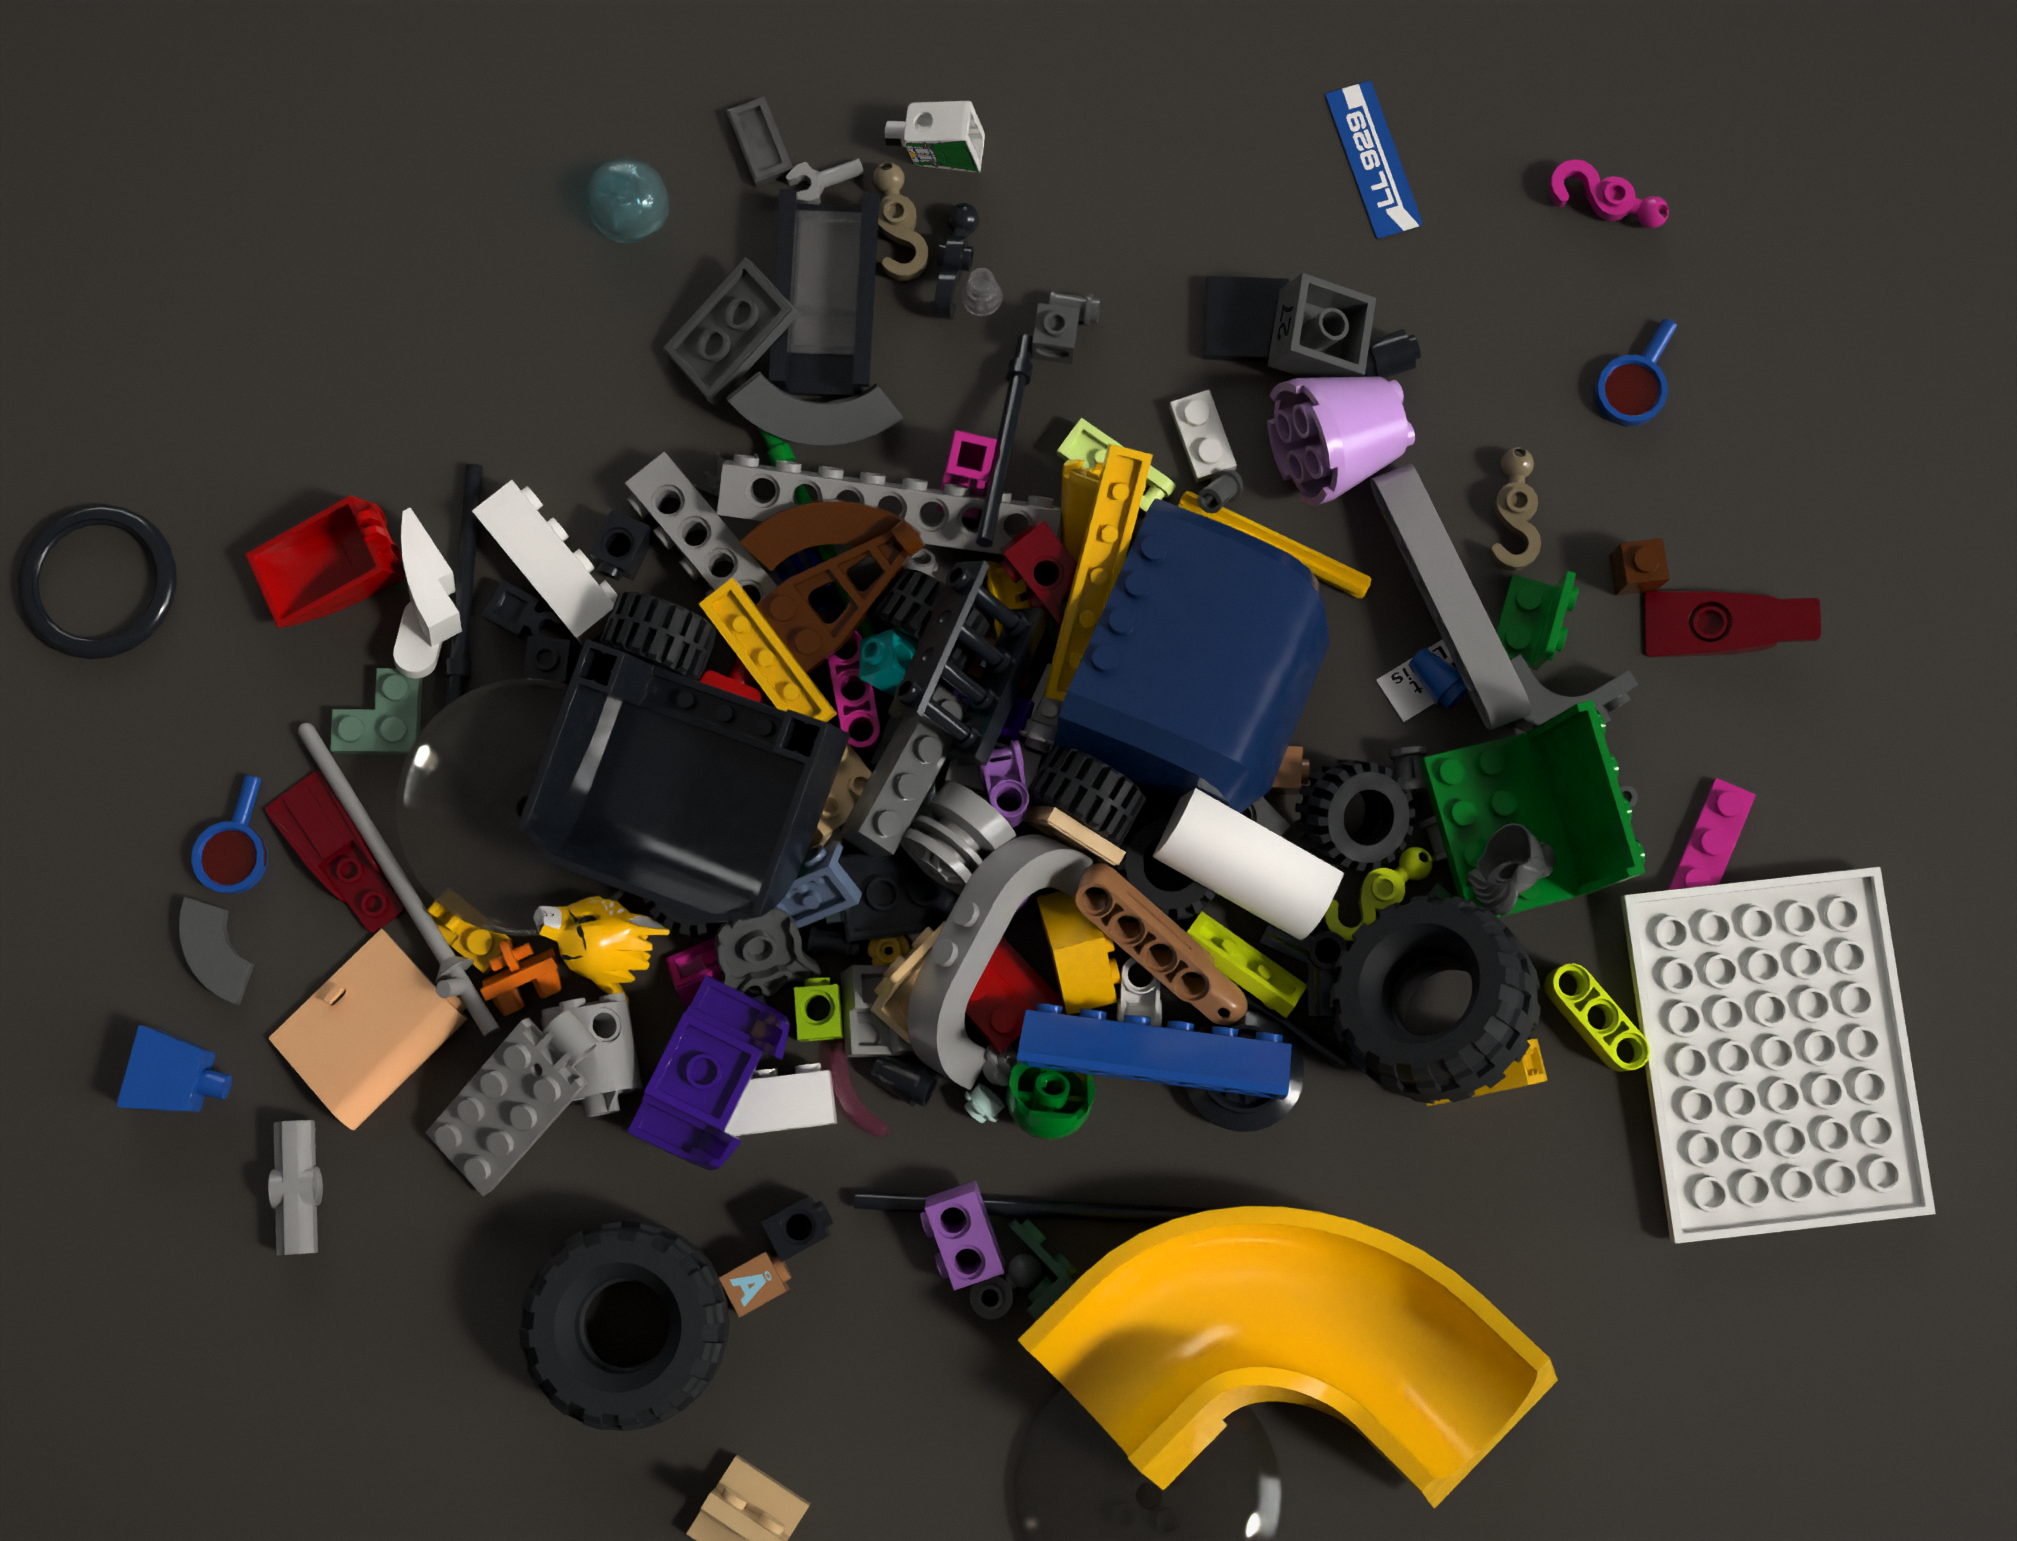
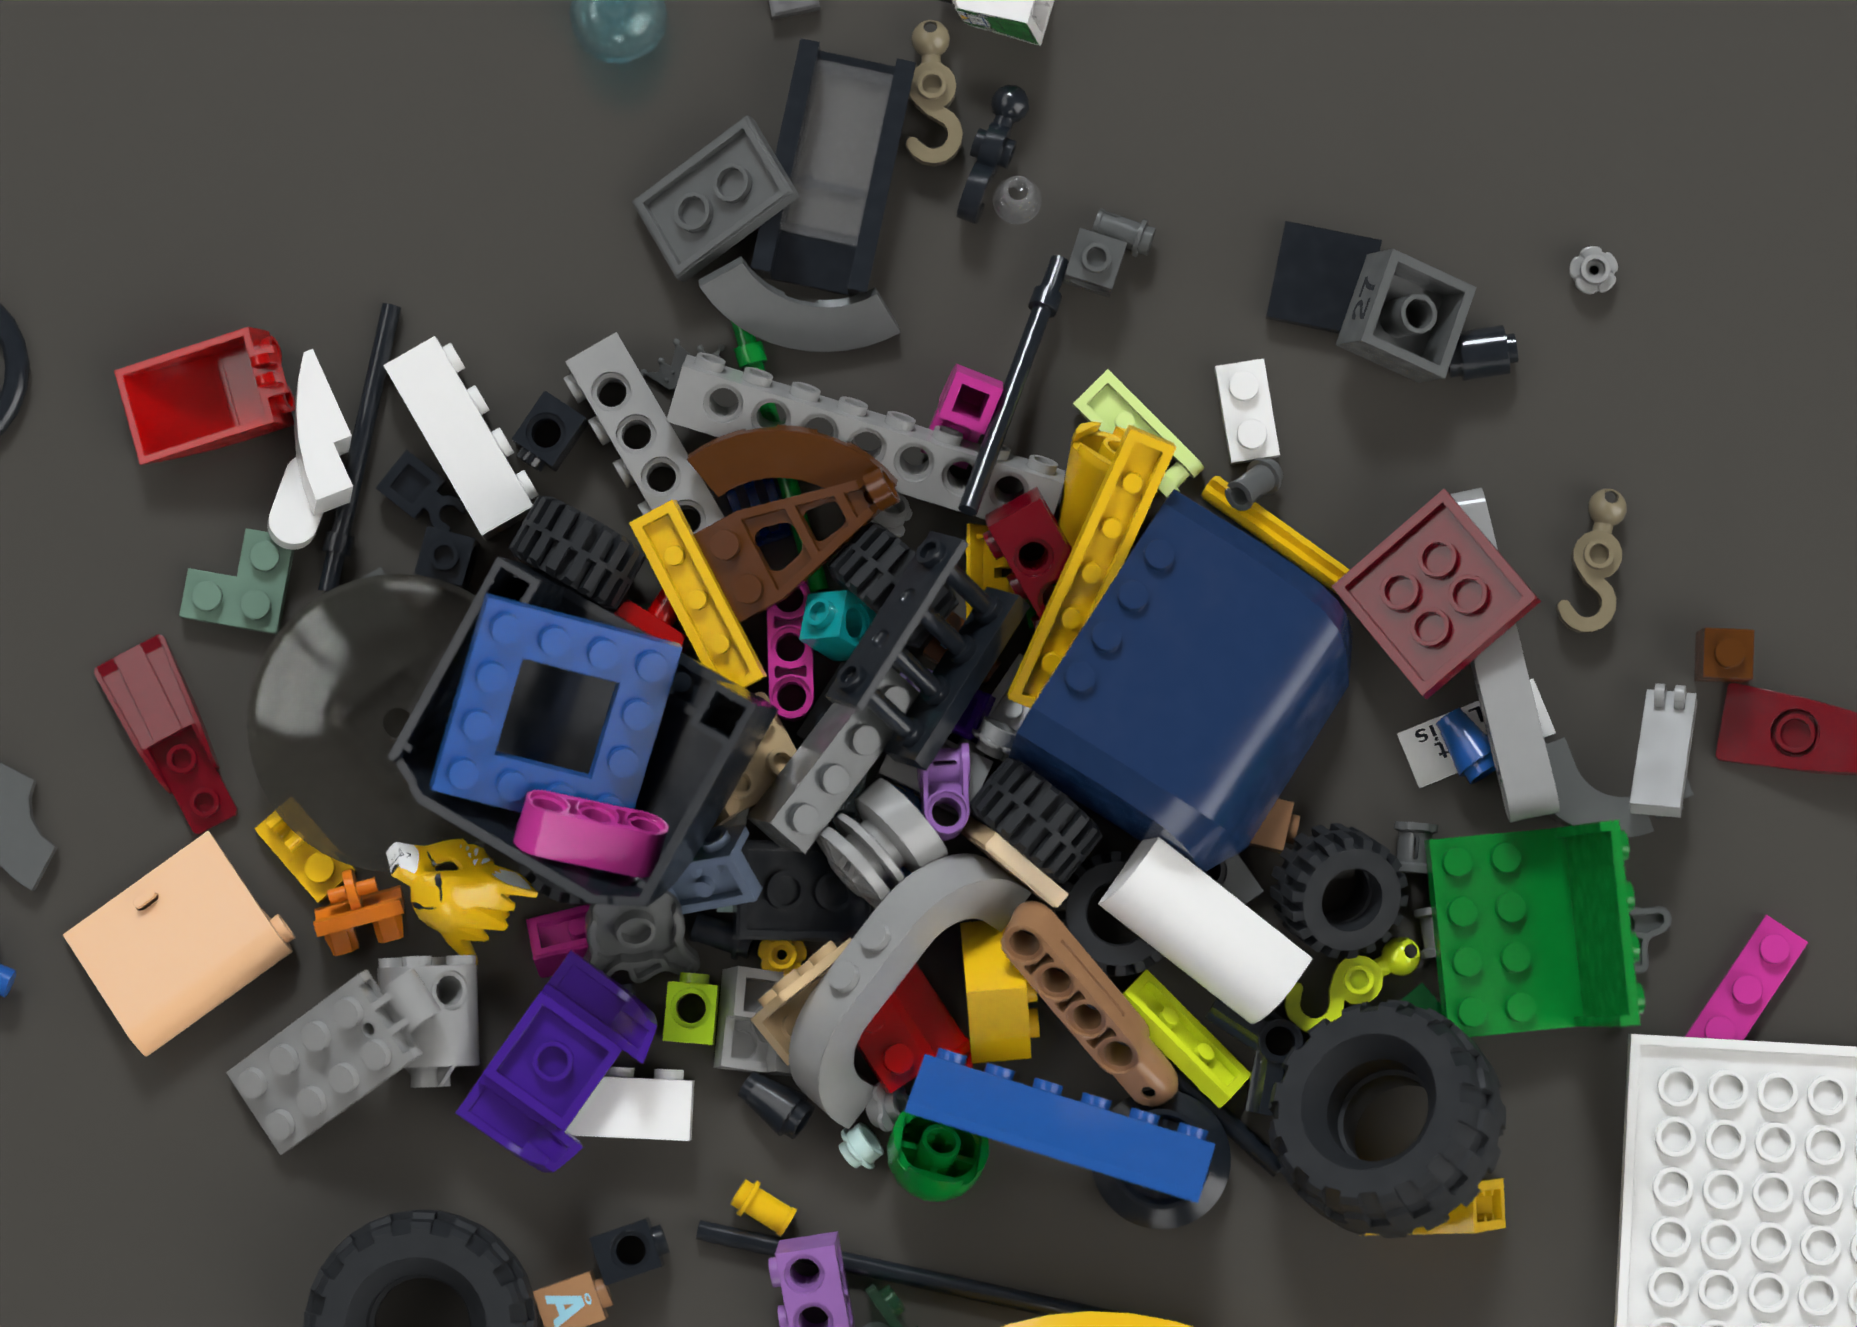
camera: 10 degrees right, 5 degrees up
(231, 854) = (48, 716): piece -> none
(295, 1187) = (72, 1110): light grey piece -> none
(451, 975) = (282, 890): light grey piece -> none
(599, 707) = (514, 631): none -> blue plate
(702, 864) = (590, 833): none -> dark pink beam
(822, 179) = (852, 25): light grey bar -> none
(847, 1096) = (708, 1111): clear pink piece -> none
(908, 1170) = (763, 1207): none -> yellow pin
(1137, 1000) = (1056, 1060): white piece -> none
(1336, 432) = (1401, 441): lavender cone -> none
(1374, 159) = (1510, 107): blue sticker -> none
(1391, 550) = (1435, 594): none -> plate
(1465, 285) = (1590, 283): none -> light grey plate
(1509, 867) = (1500, 985): dark grey hair -> none
(1534, 618) = (1587, 696): green bracket -> none
(1605, 653) = (1663, 752): none -> light grey hinge
(1608, 198) = (1778, 205): dark pink piece -> none
(1617, 1024) = (1594, 1180): neon yellow beam -> none
(1633, 385) = (1762, 436): piece -> none

